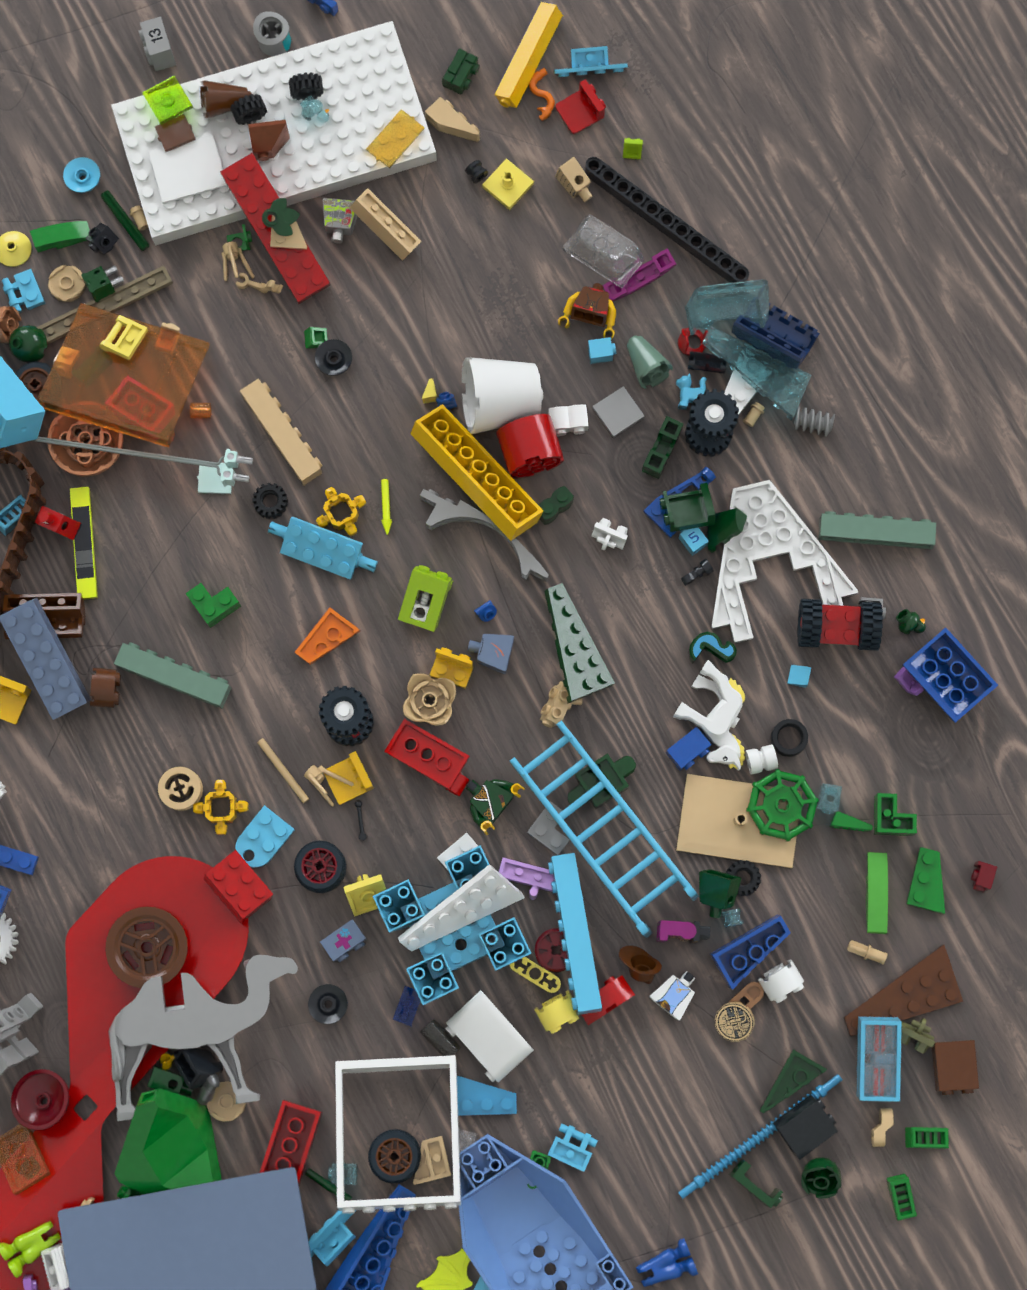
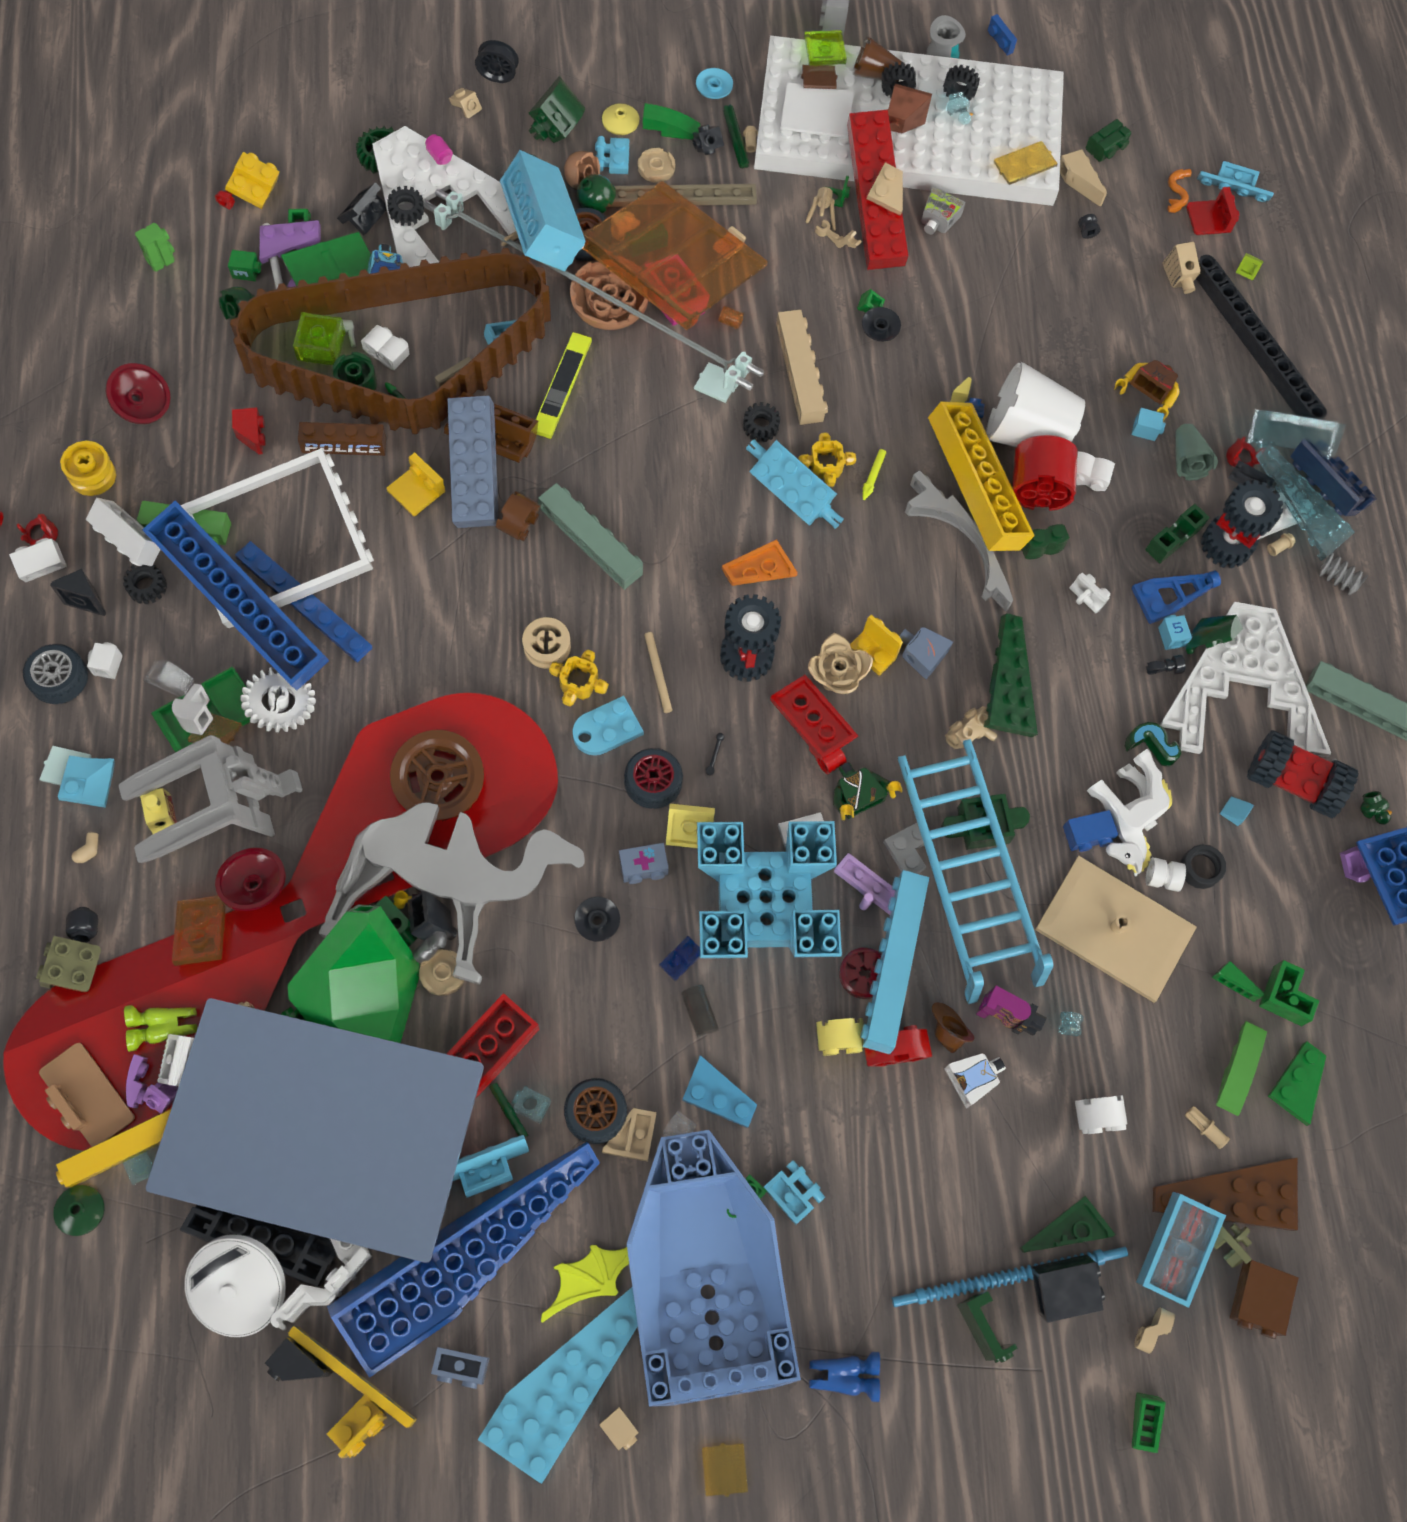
camera: 15 degrees right, 10 degrees down
(53, 521) = (541, 345): red torso -> none
(99, 283) = (689, 173): dark green piece -> none
(129, 339) = (691, 225): light yellow plate -> none
(213, 608) = (662, 492): green brick -> none
(238, 886) = (560, 759): red brick -> none
(283, 217) = (892, 172): dark green plate -> none
(316, 777) = (689, 691): tan plant -> none
(352, 771) = (722, 707): yellow bracket -> none
(385, 224) = (983, 229): tan brick -> none
(397, 1064) = (639, 1012): white door -> none
(430, 582) = (898, 564): lime brick -> none
(474, 900) = (800, 875): white wing -> none
(486, 611) = (932, 611): blue plate -> none
(489, 1036) = (756, 1029): white windscreen -> none
(508, 184) = (1114, 250): light yellow tile -> none
(519, 970) = (846, 998): light yellow beam -> none
(528, 55) = (1180, 151): yellow brick -> none
(604, 250) = (1189, 337): clear windscreen -> none
(618, 412) = (1142, 487): light grey tile -> none
(644, 275) = (1216, 378): magenta slope -> none
(687, 393) = (1220, 495): medium azure animal -> none
(688, 509) = (1182, 599): dark green panel -> none
(718, 890) = (1068, 987): dark green torso -> none
(734, 1021) = (1030, 1135): tile -> none
(748, 950) = (1069, 1066): blue wedge -> none
(752, 992) = (1061, 1112): medium nougat plate -> none
(754, 874) = (1107, 978): black tyre -> none
(771, 803) = (1162, 939): green plate -> none
(821, 1178) = (1065, 1355): dark green cylinder -> none
(824, 804) = (1227, 938): clear light blue brick -> none
(913, 1137) = (1185, 1362): green slope -> none
(983, 876) = (1368, 1102): dark red brick -> none

